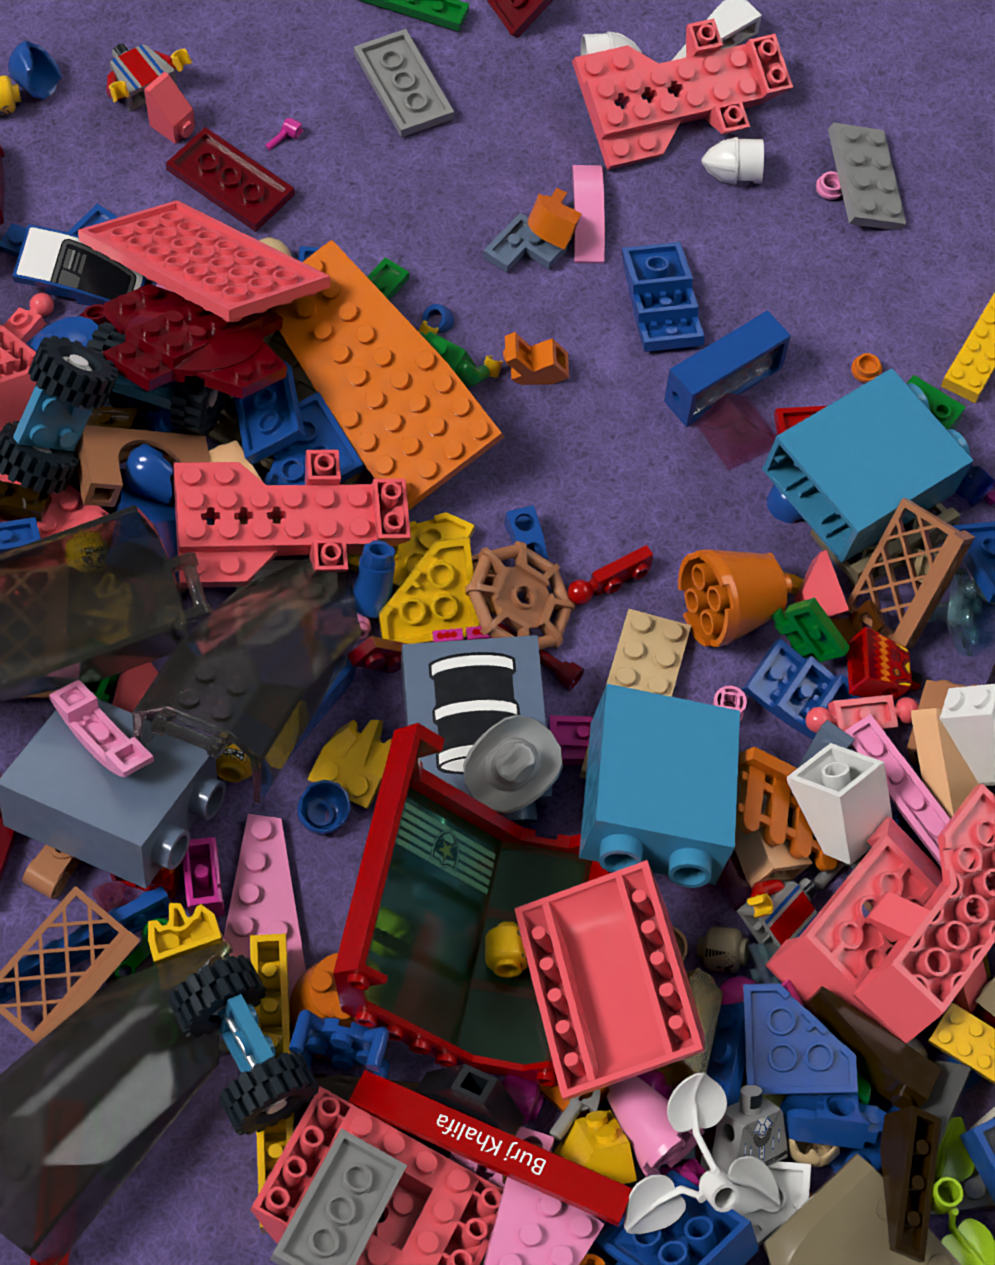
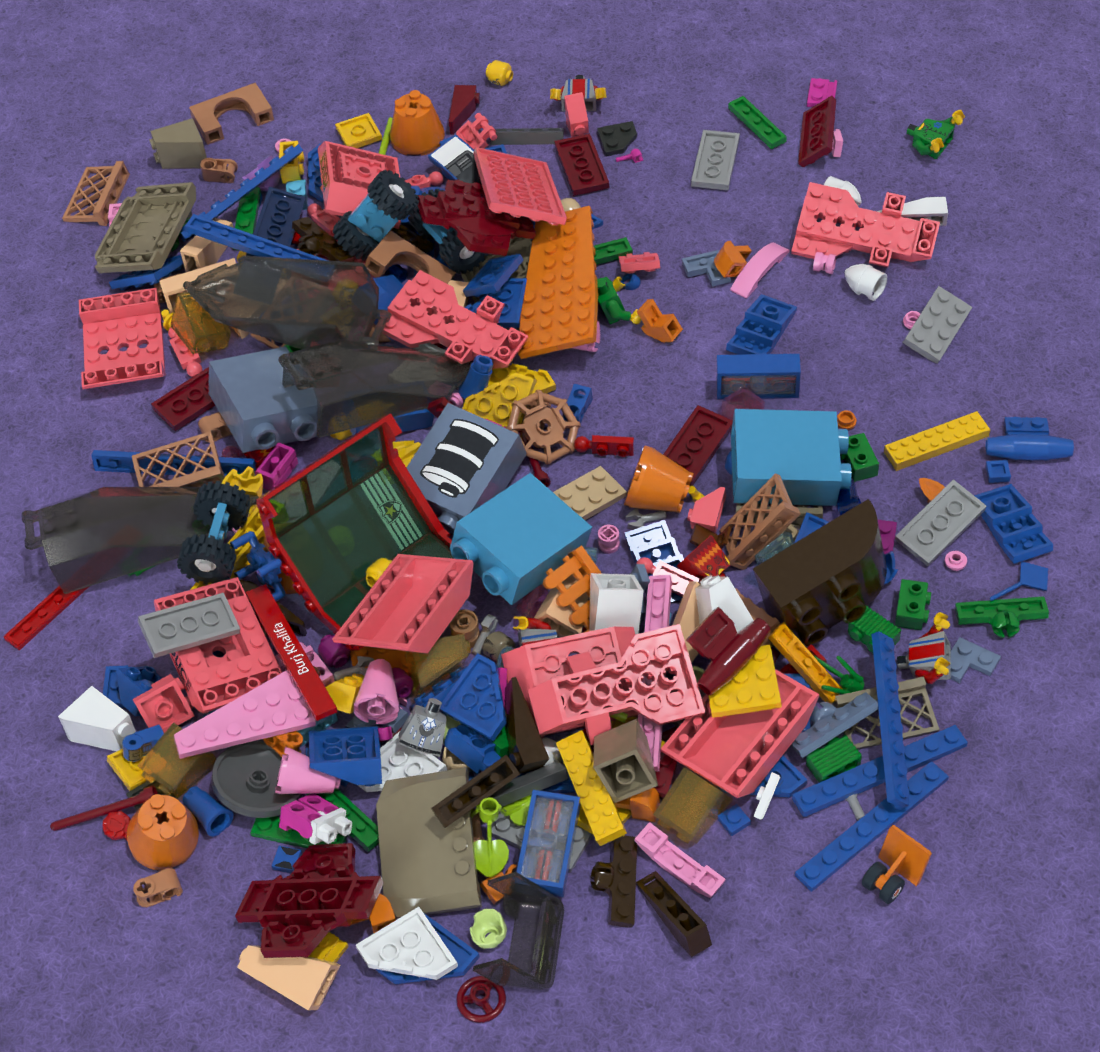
camera: 45 degrees right, 10 degrees down
(34, 70) = (527, 68): blue hair -> none
(35, 211) = (470, 134): none -> coral plate
(97, 732) = (273, 372): bright pink slope -> none
(113, 173) = (527, 136): none -> dark grey slope
(149, 474) = (406, 269): blue hair -> none
(241, 114) = (617, 137): none -> pearl dark grey plate
(434, 285) = (645, 261): none -> coral plate
(474, 1095) = (307, 630): black slope -> none
(512, 764) = (456, 487): light grey hat -> none
(664, 161) = (824, 262): none -> bright pink wheel
(686, 925) = (489, 626): none -> light grey bar
(722, 500) = (698, 440): none -> dark red plate
(741, 651) = (642, 519): none -> light grey bar
(747, 1187) = (343, 724): white plant -> none
(810, 631) = (680, 522): green plate -> none

